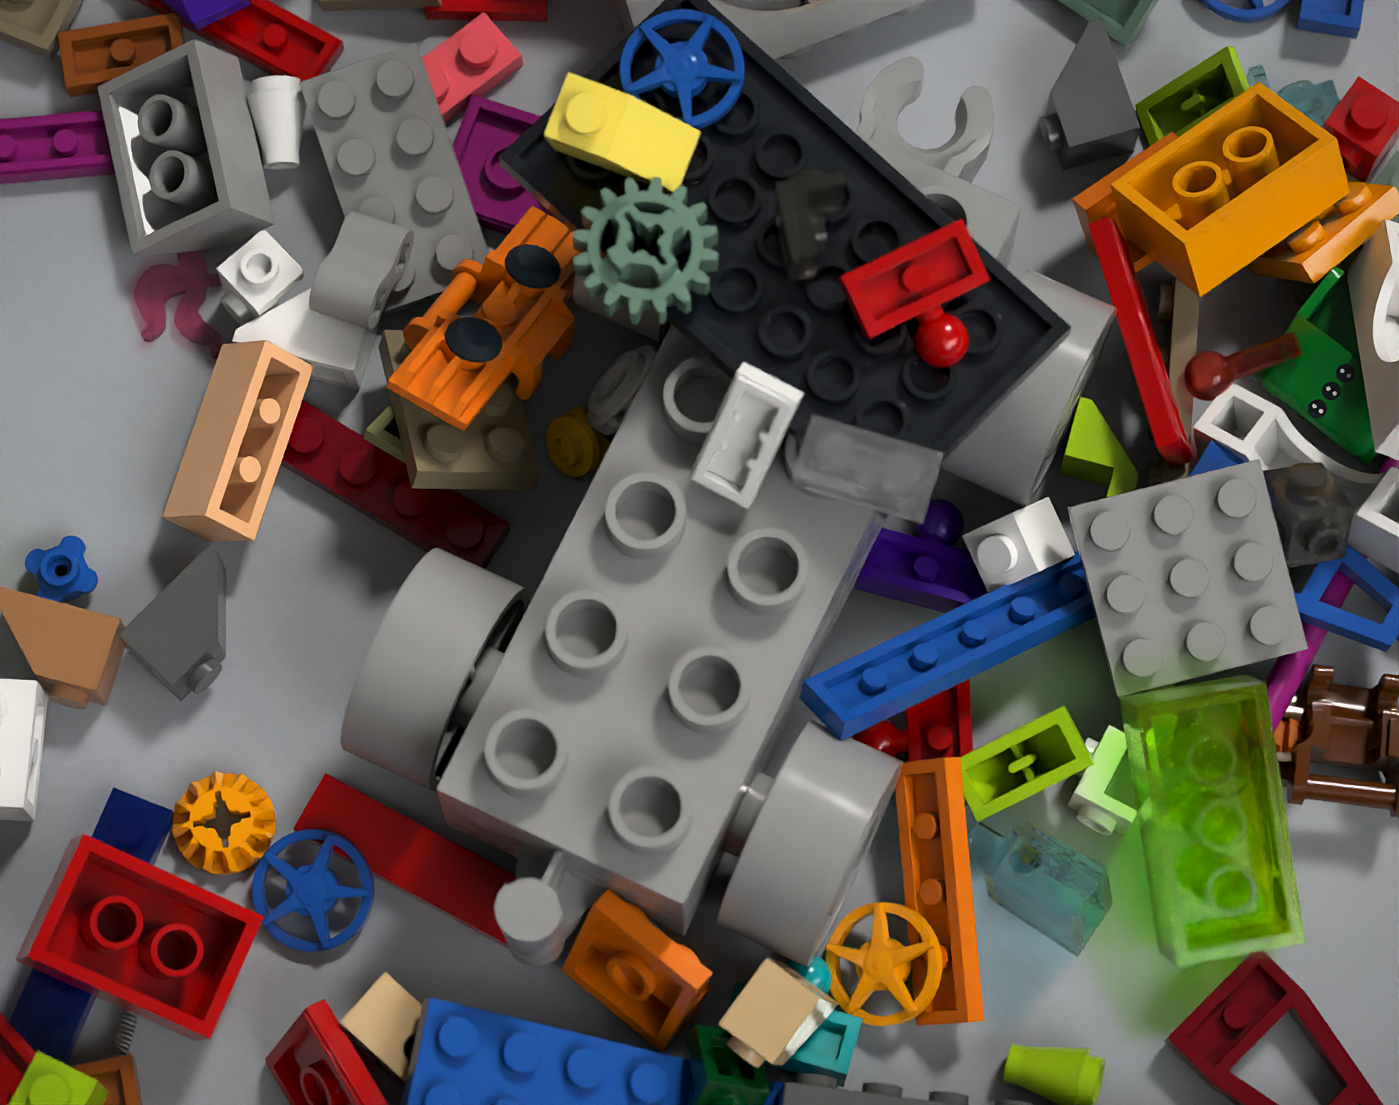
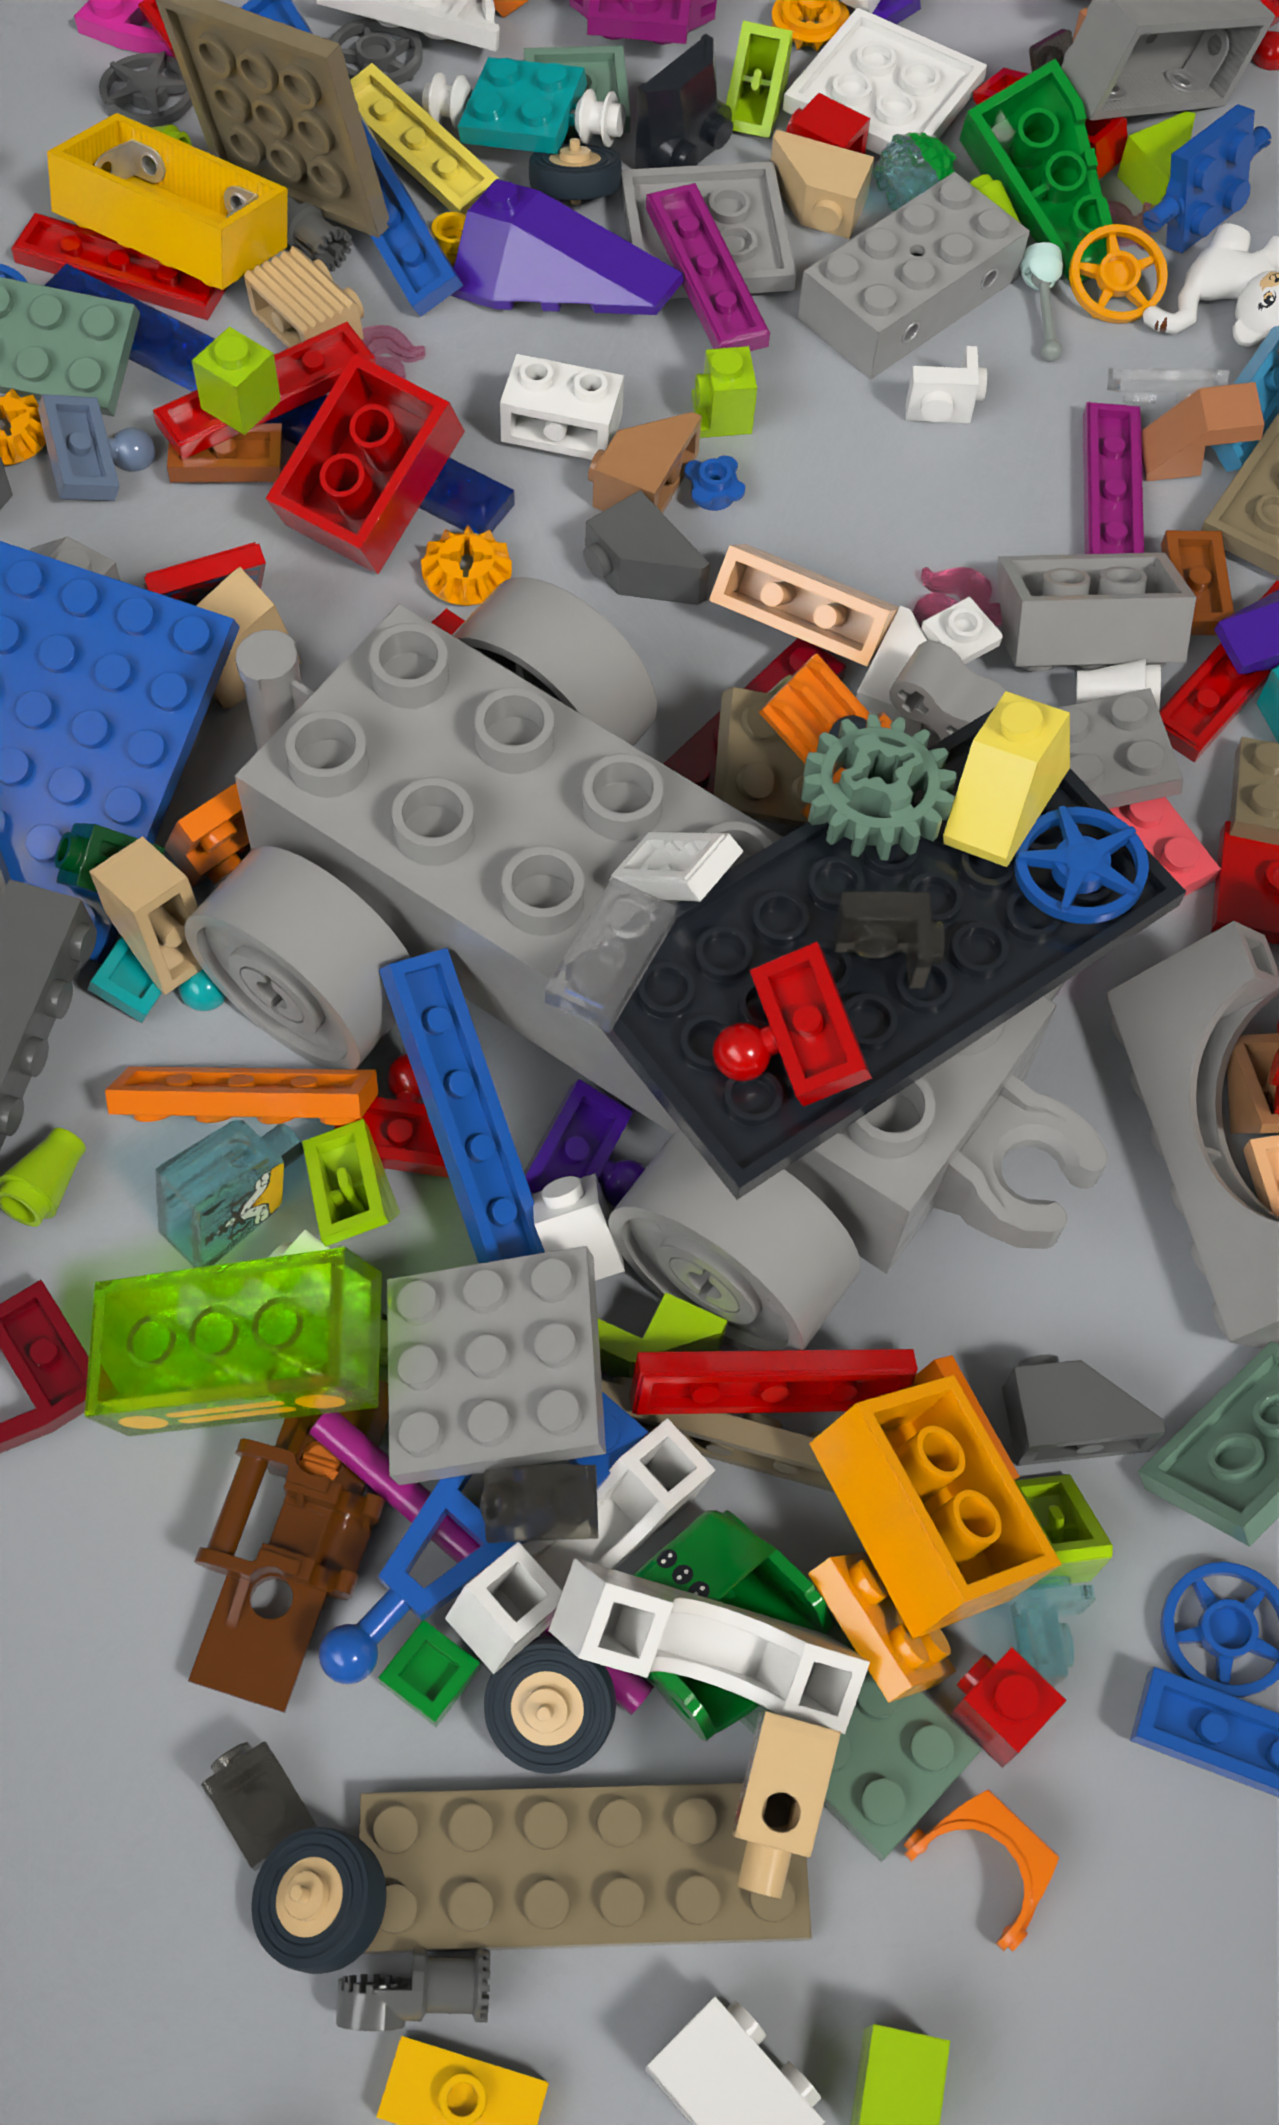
camera: 95 degrees right, 10 degrees down
(313, 890) = (383, 604): blue wheel -> none
(884, 963) = (191, 1042): light orange wheel -> none
(1212, 373) = (729, 1455): clear red bar -> none

